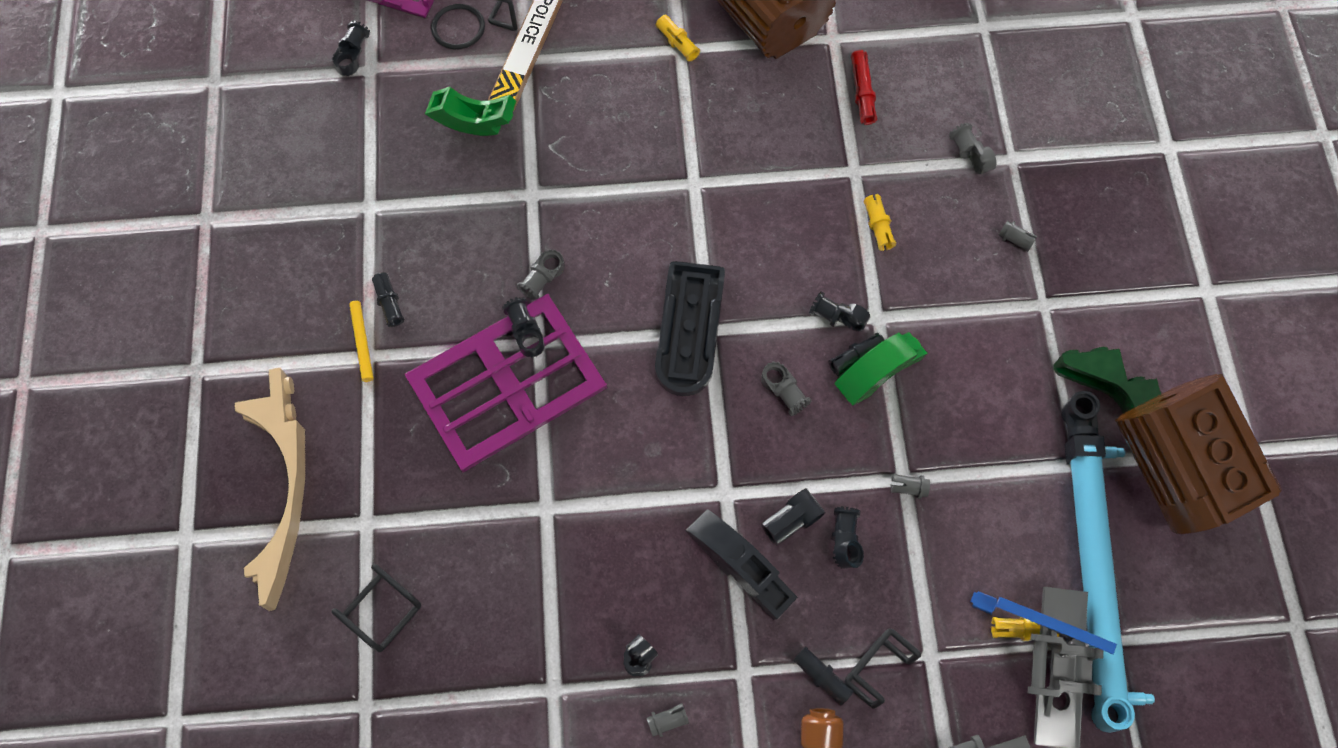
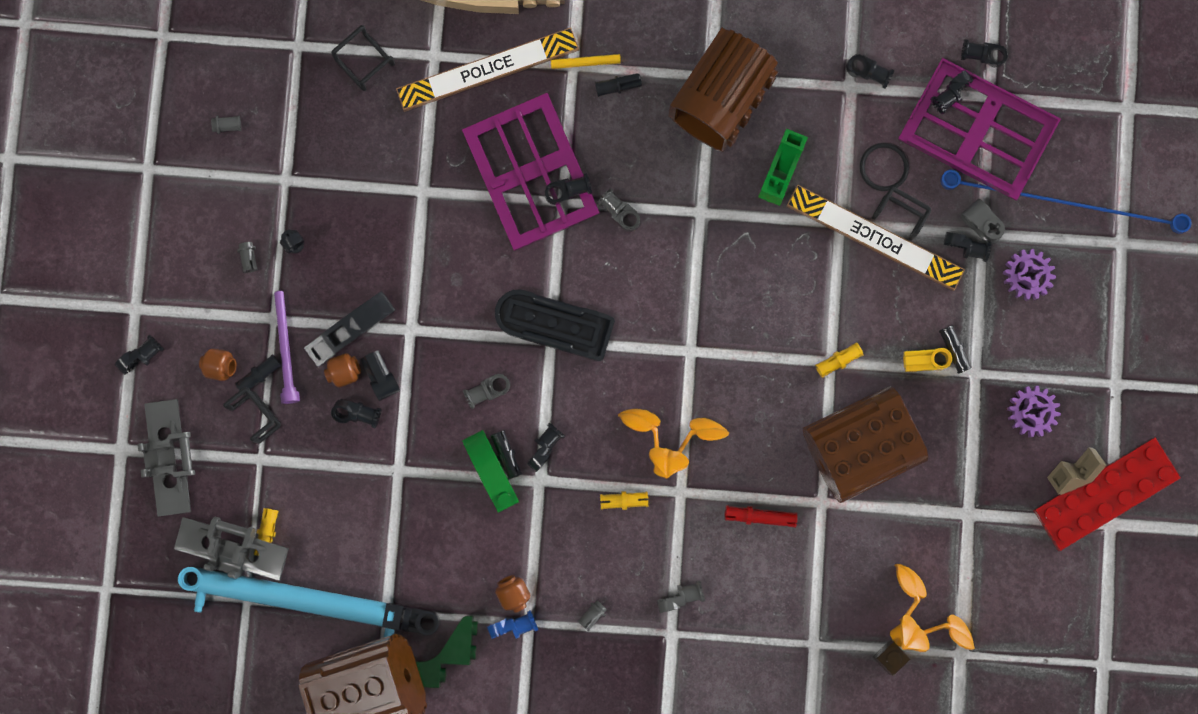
camera: 95 degrees right, 15 degrees up
(381, 456) = (487, 69): none -> tile
(385, 167) = (723, 90): none -> reddish brown piece
(796, 563) = (342, 370): none -> dark orange head
(832, 156) = (666, 460): none -> light orange plant
(839, 629) = (289, 393): none -> medium lavender piece
(911, 485) = (390, 472): dark grey pin -> none
(988, 604) = (289, 510): blue piece -> none
(1018, 320) = (512, 593): none -> dark orange head
(1059, 323) = (518, 626): none -> blue connector

